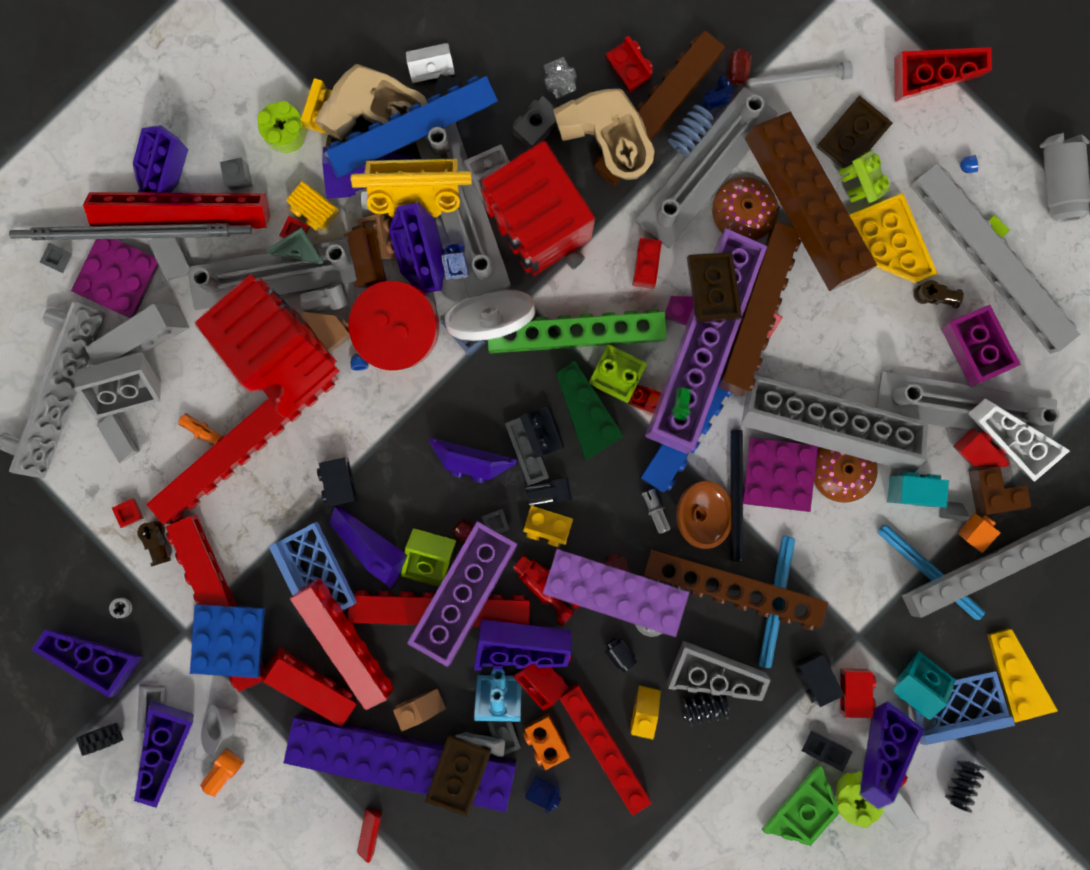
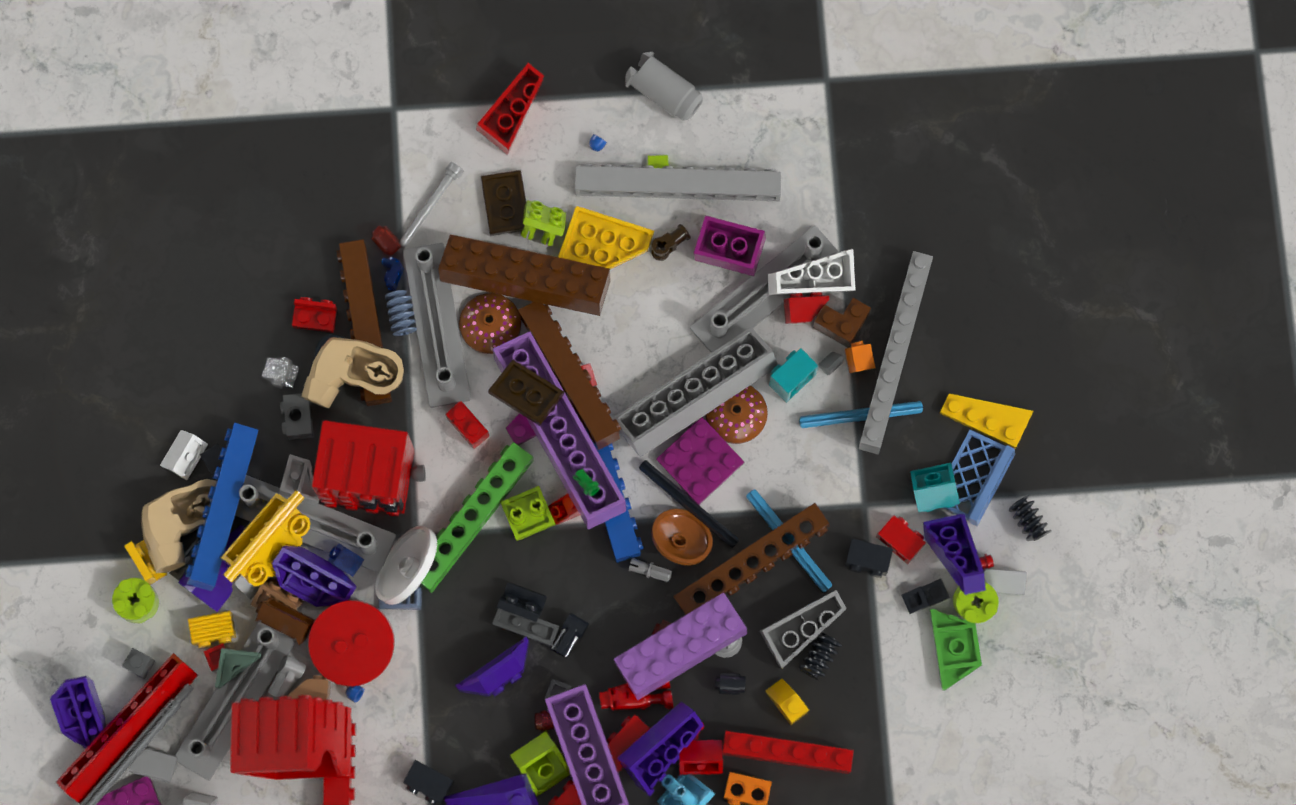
camera: 50 degrees left, 10 degrees down
(548, 526) = (593, 657): yellow bracket -> none
(587, 413) = (536, 558): dark green wedge -> none

